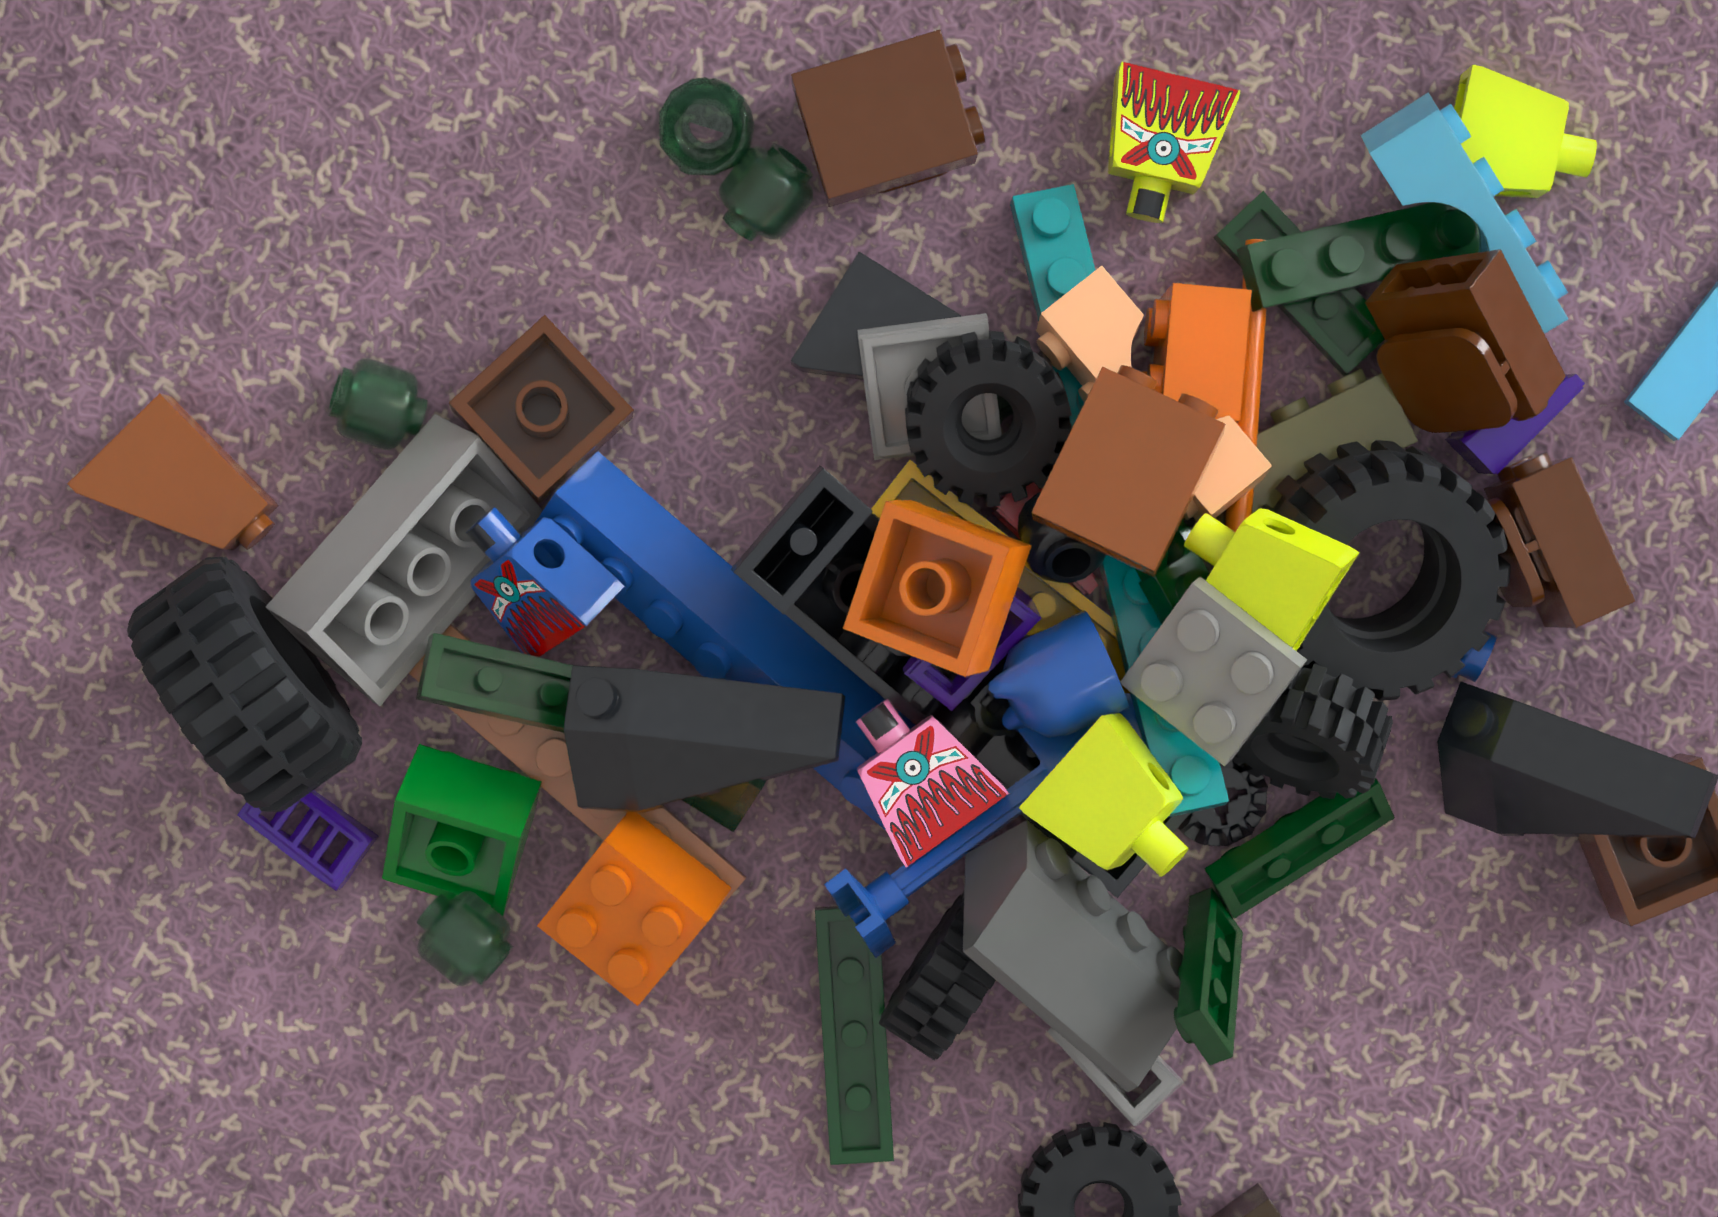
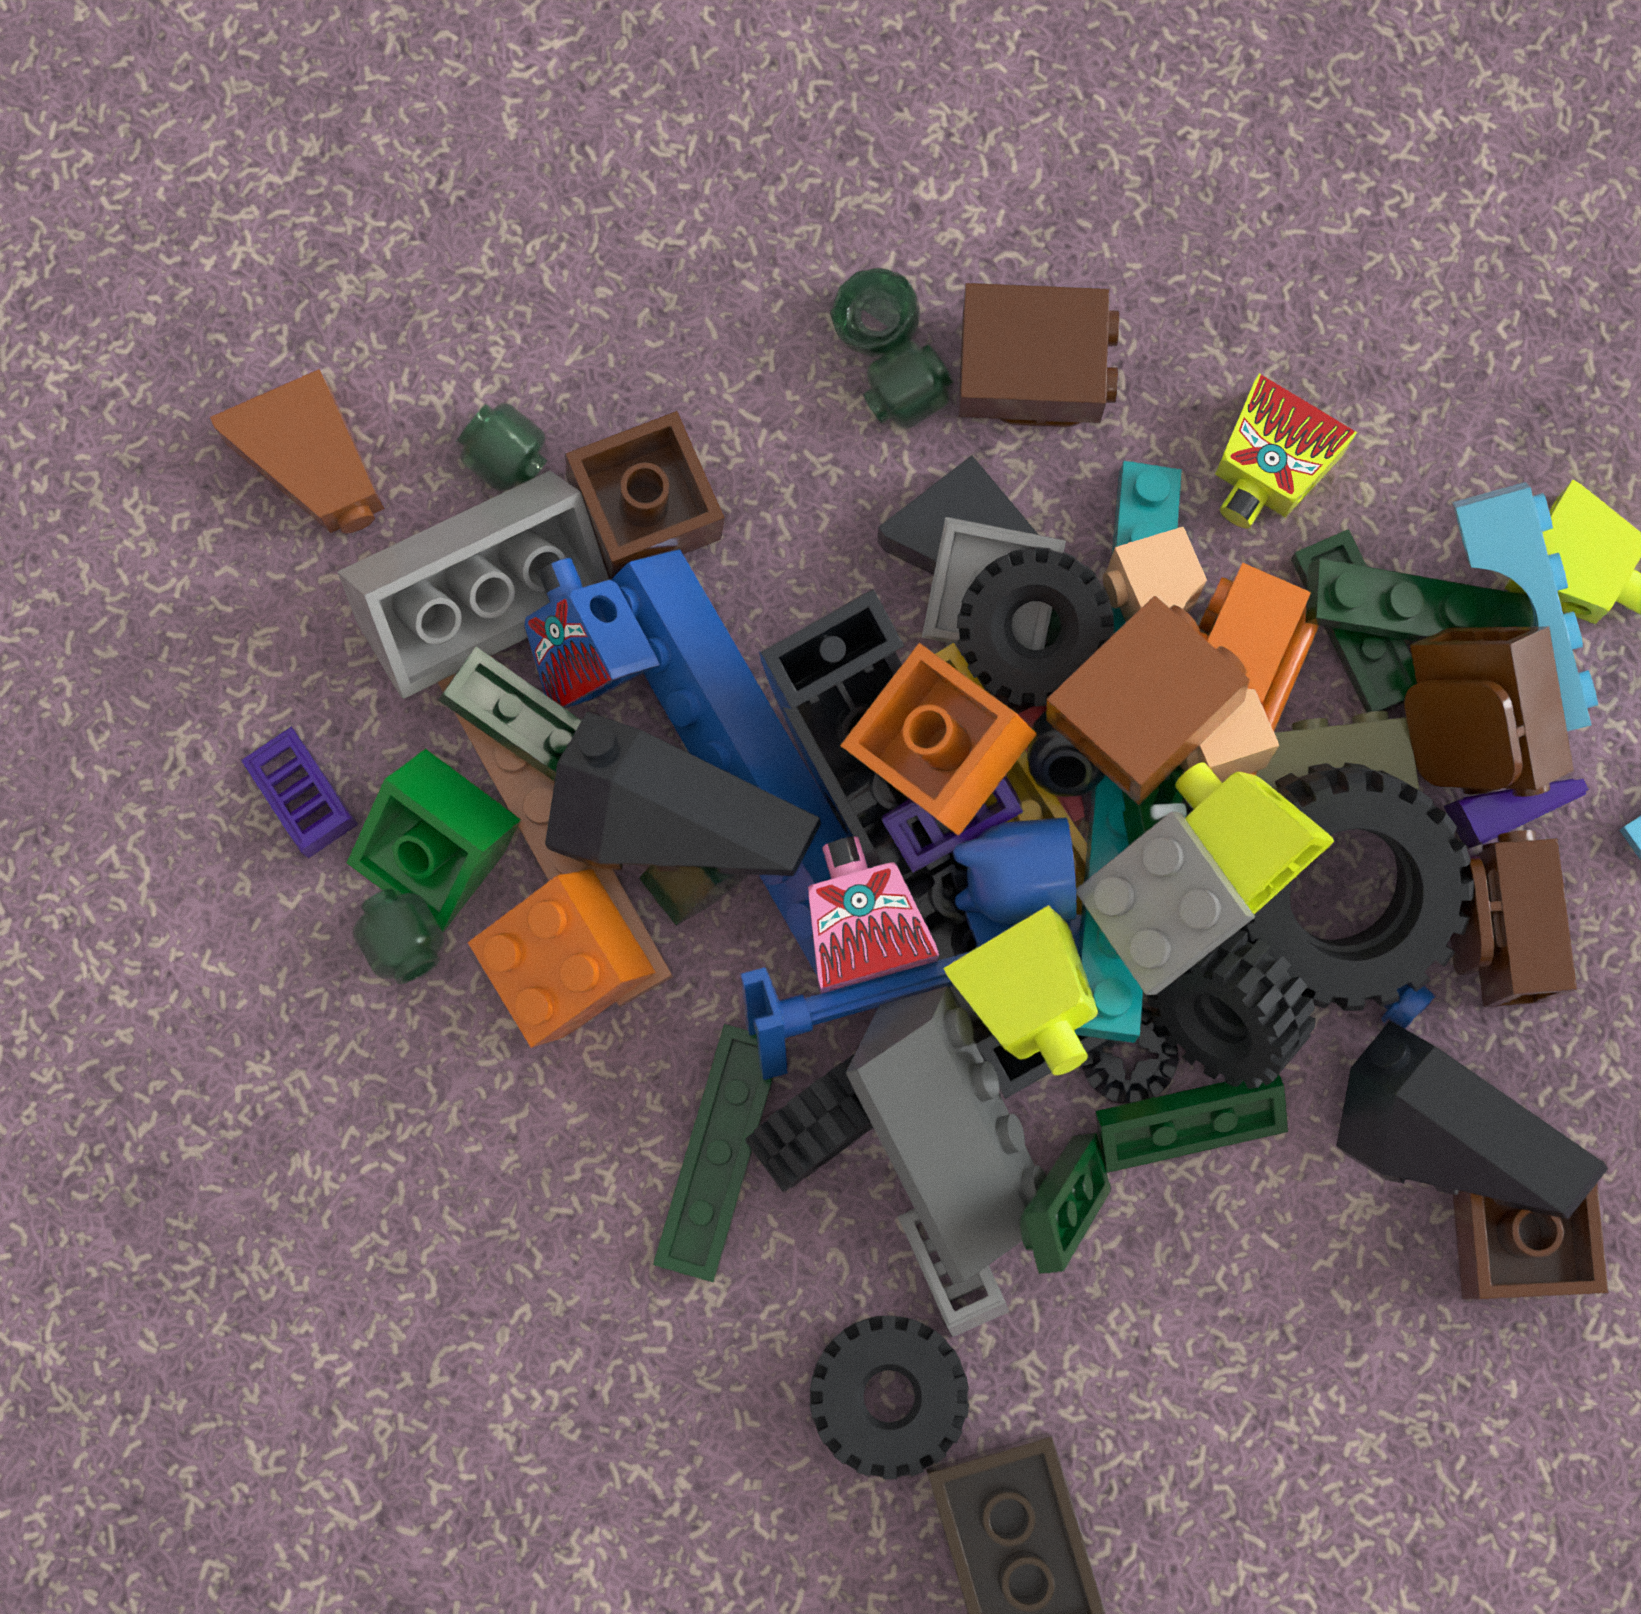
camera: 15 degrees right, 10 degrees down
(243, 685) = (291, 628): black tyre -> none

